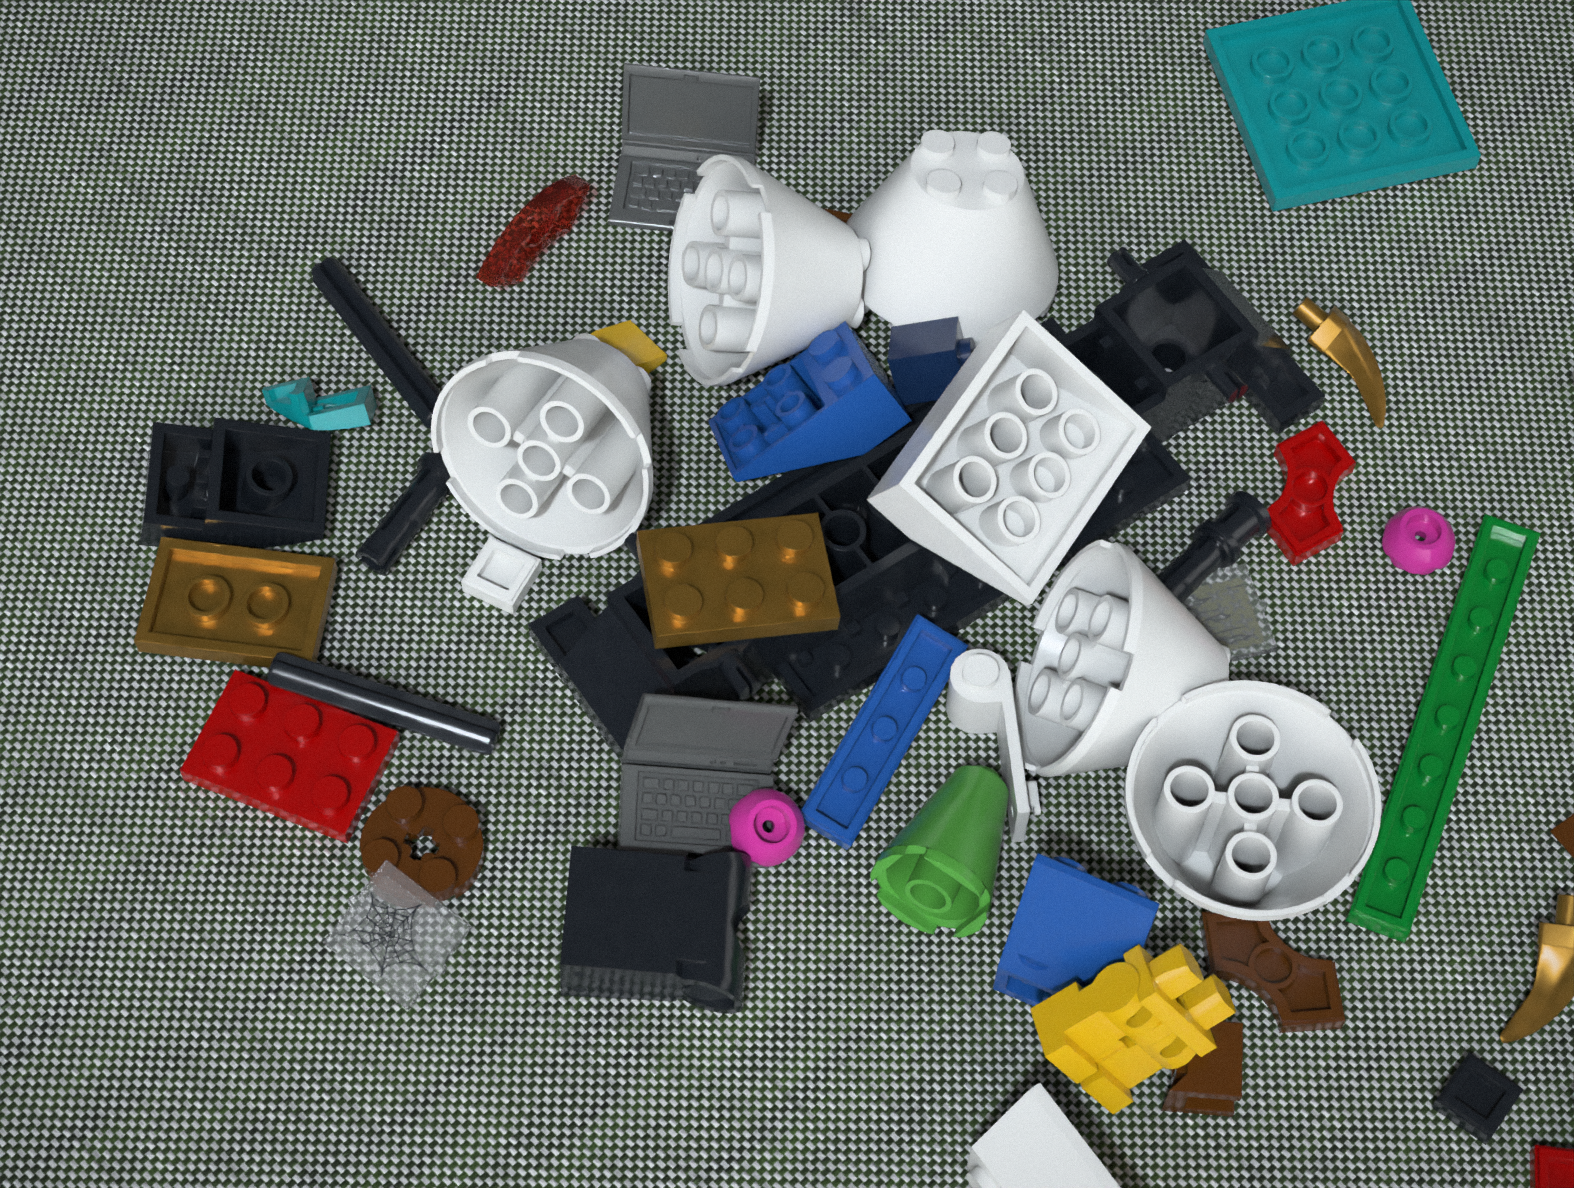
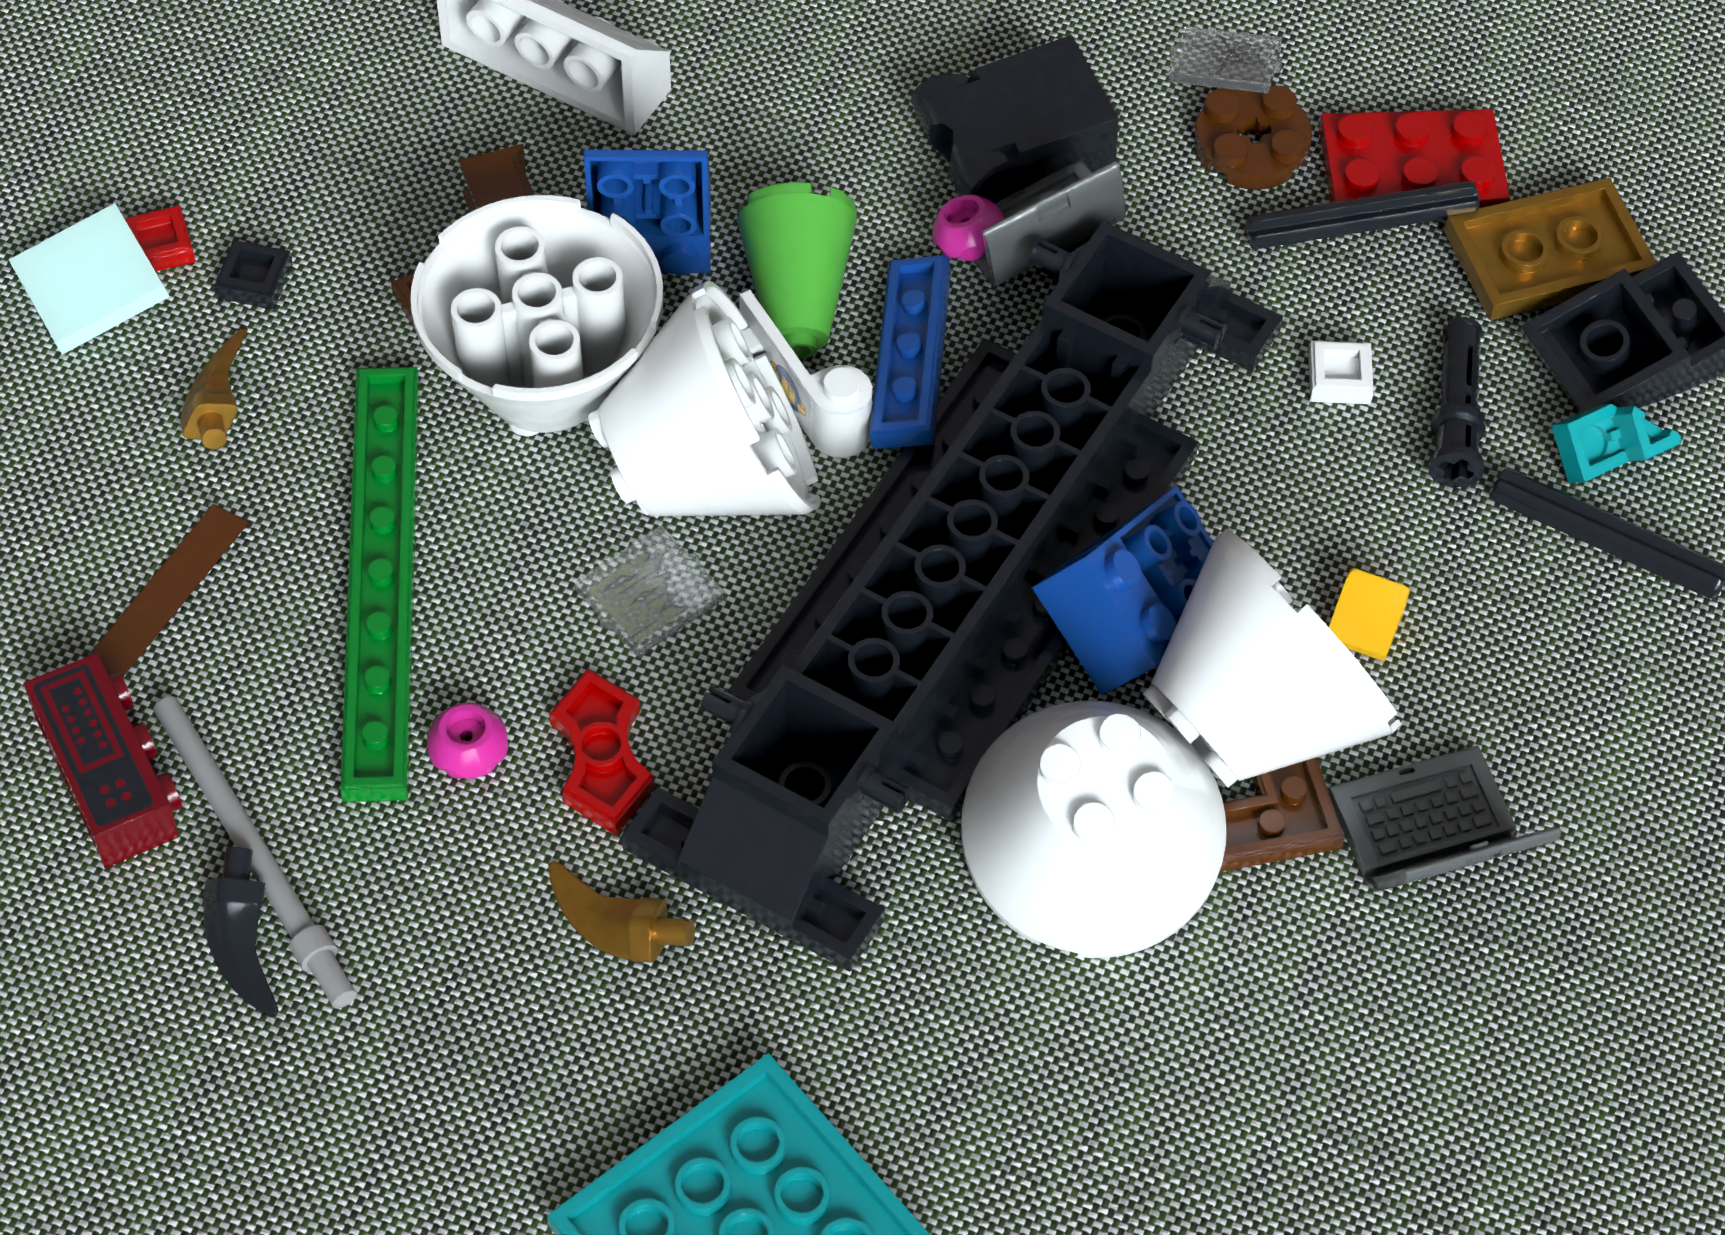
camera: 155 degrees right, 5 degrees down
(532, 230) = (1538, 679): clear red tile -> none
(550, 445) = (1359, 439): white cone -> none
(737, 580) = (1099, 312): pearl gold plate -> none
(926, 358) = (1049, 676): dark blue brick -> none
(1011, 459) = (907, 526): white slope -> none
(1132, 1022) = (552, 150): yellow hips -> none
(1217, 544) = (674, 637): black pin -> none

